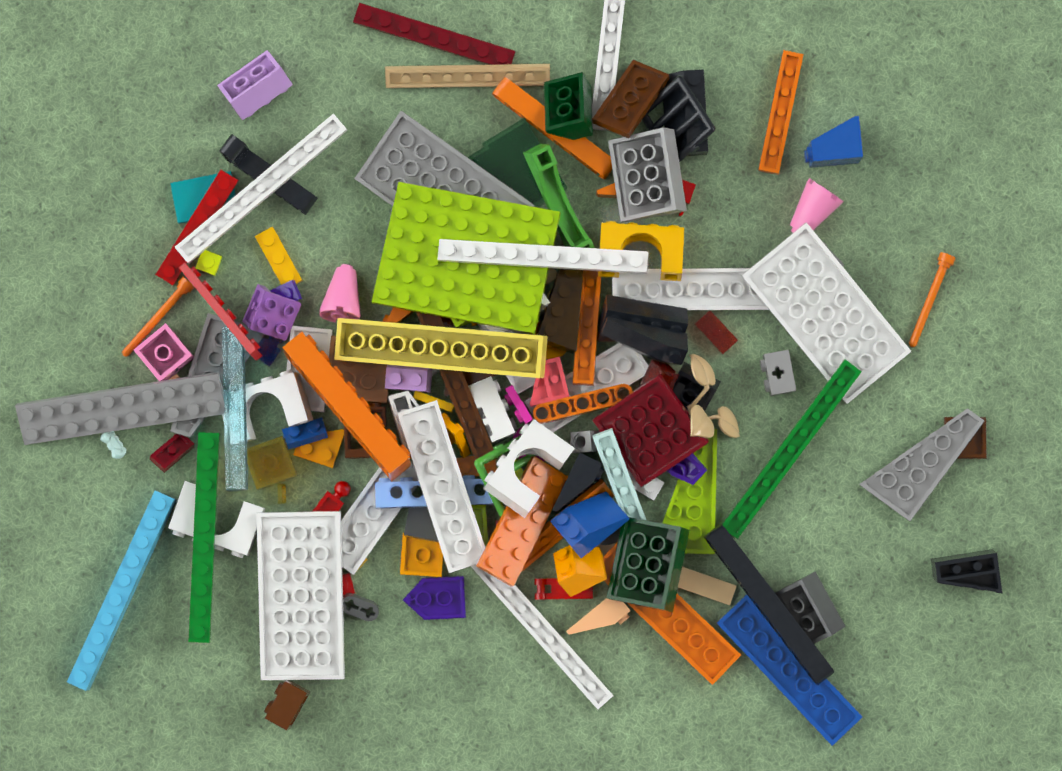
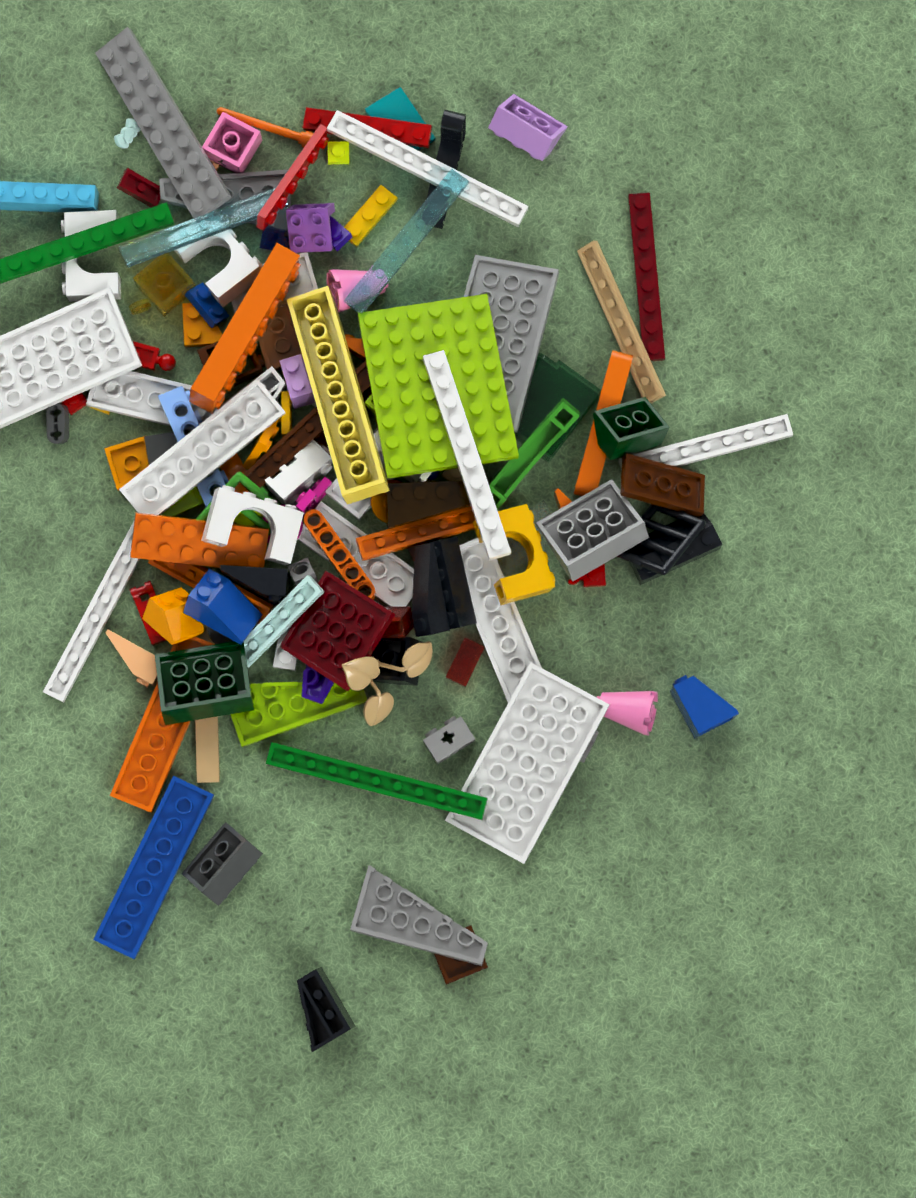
camera: 65 degrees right, 5 degrees down
(323, 233) = (406, 241): none -> clear light blue tile
(438, 598) = (95, 496): dark purple tile -> none
(552, 386) = (348, 518): coral wing -> none
(769, 604) = (210, 819): black beam -> none
(780, 112) = (712, 640): orange plate -> none
(945, 261) = (628, 864): orange piece -> none

